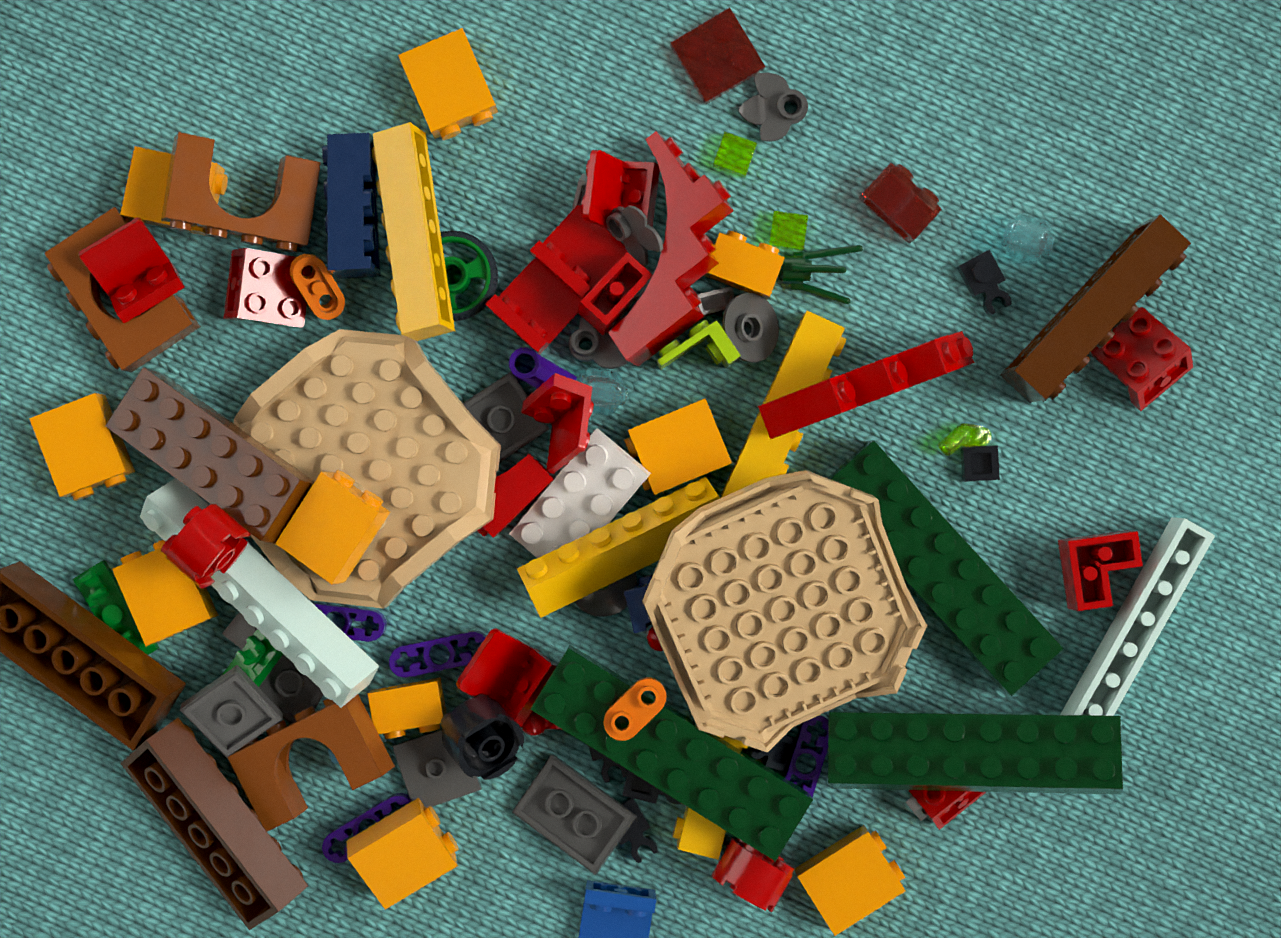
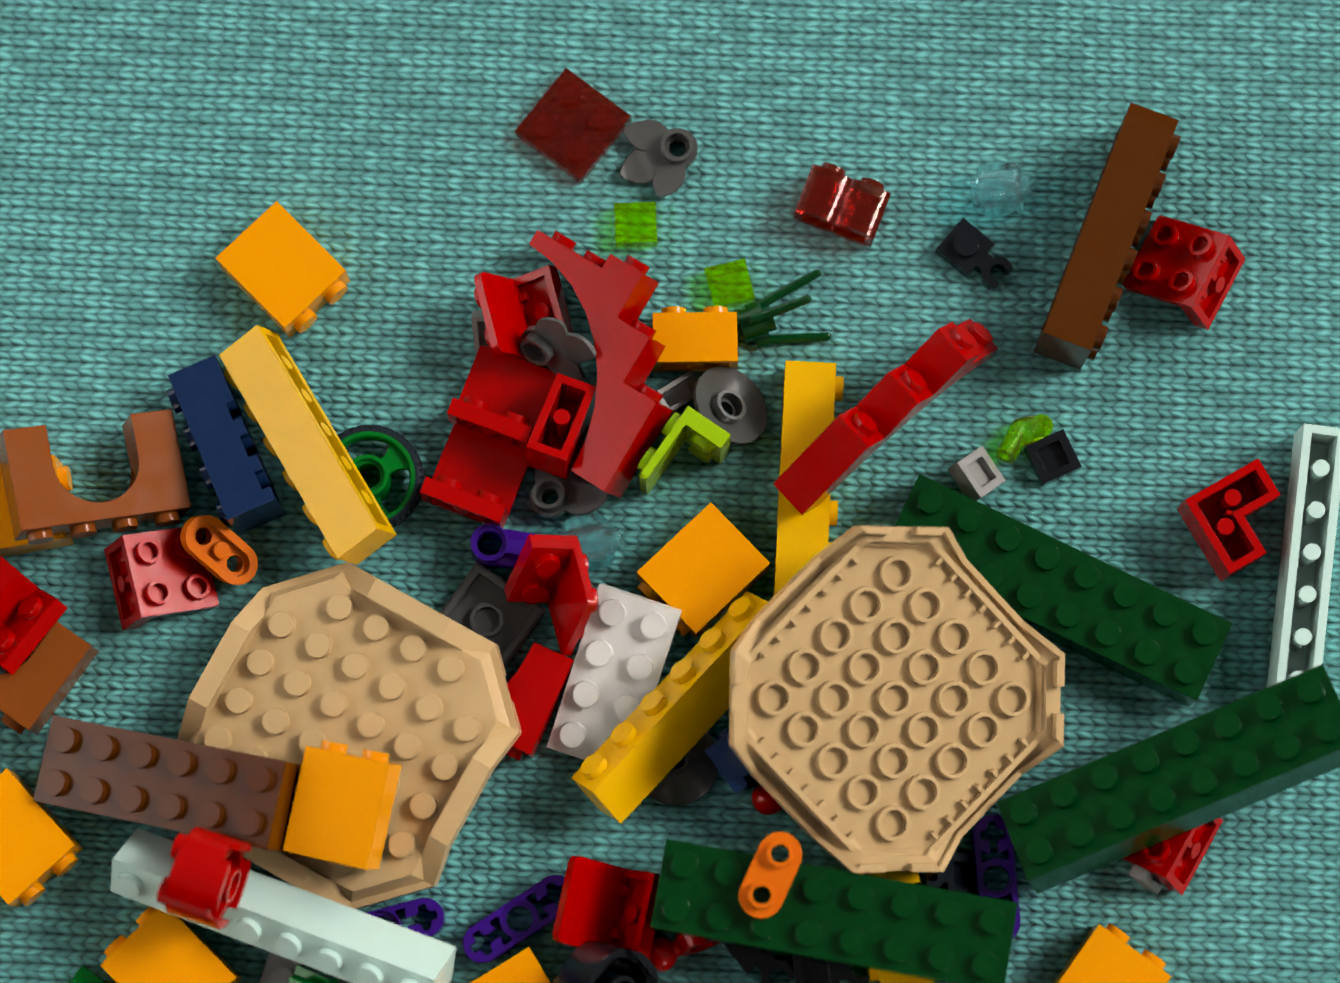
camera: 25 degrees left, 10 degrees down
(917, 455) = (976, 474): none -> light grey plate

